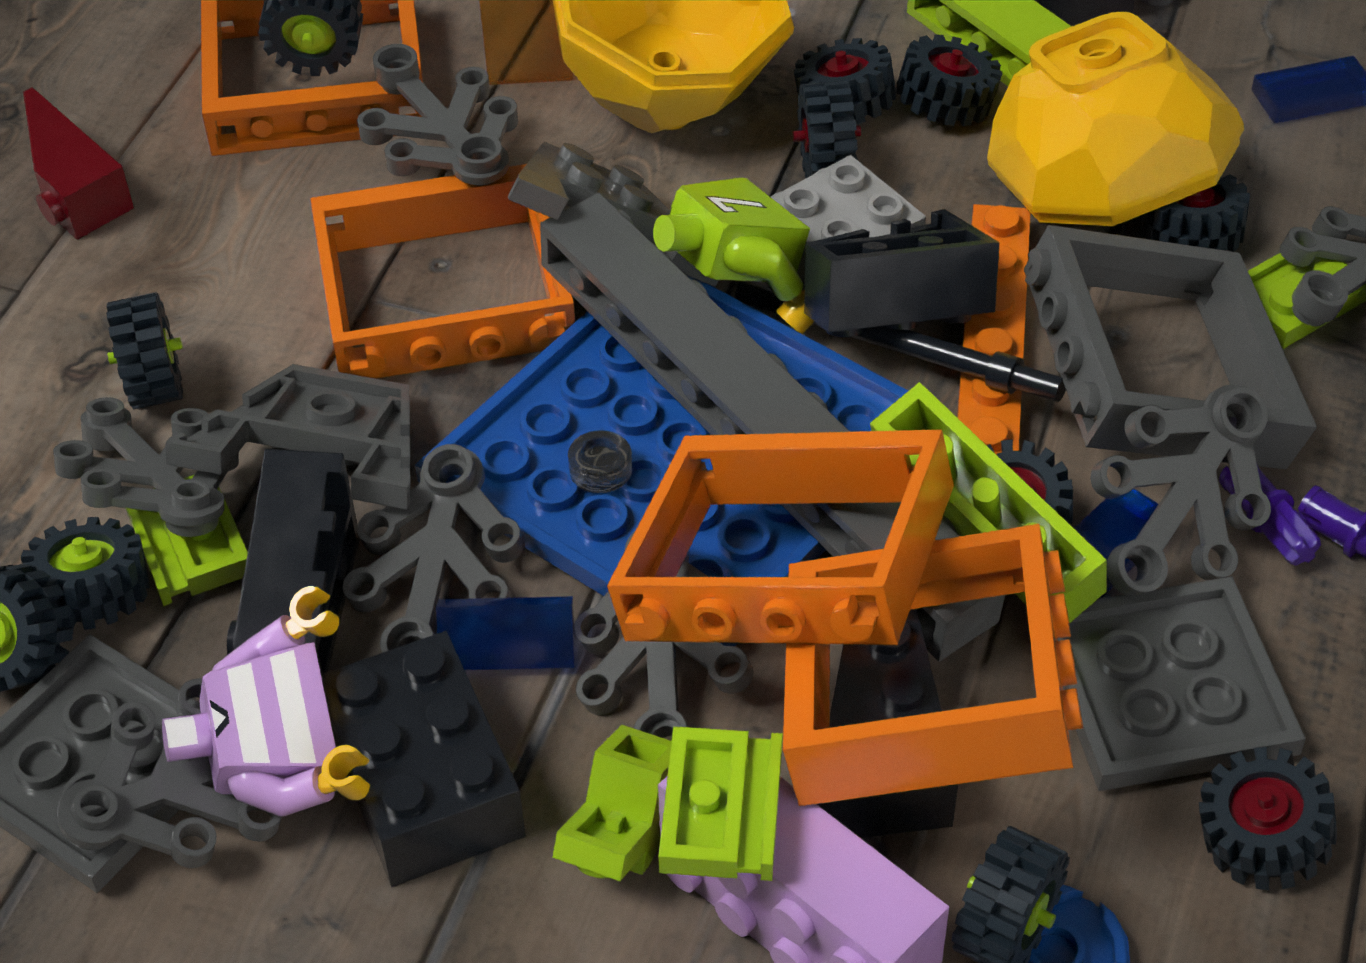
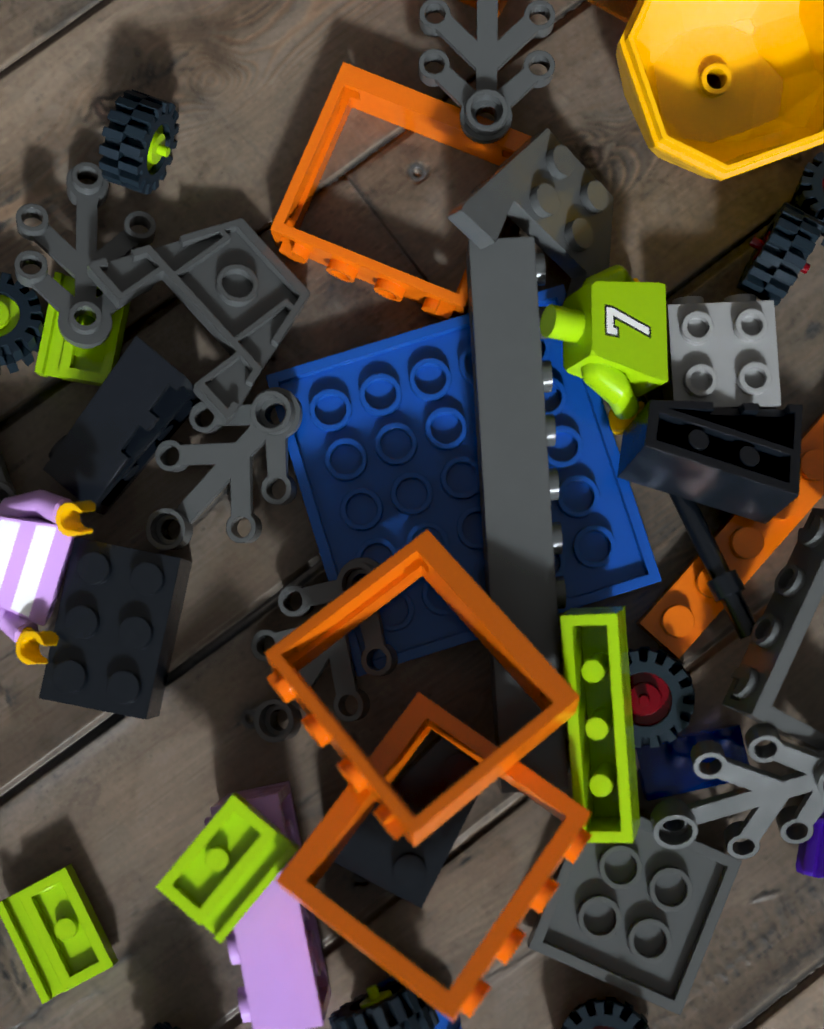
camera: 35 degrees right, 35 degrees up
(510, 632) = (235, 563): clear blue tile -> none
(600, 461) = (387, 466): clear smoke tile -> none
(620, 819) = (207, 765): lime brick -> none

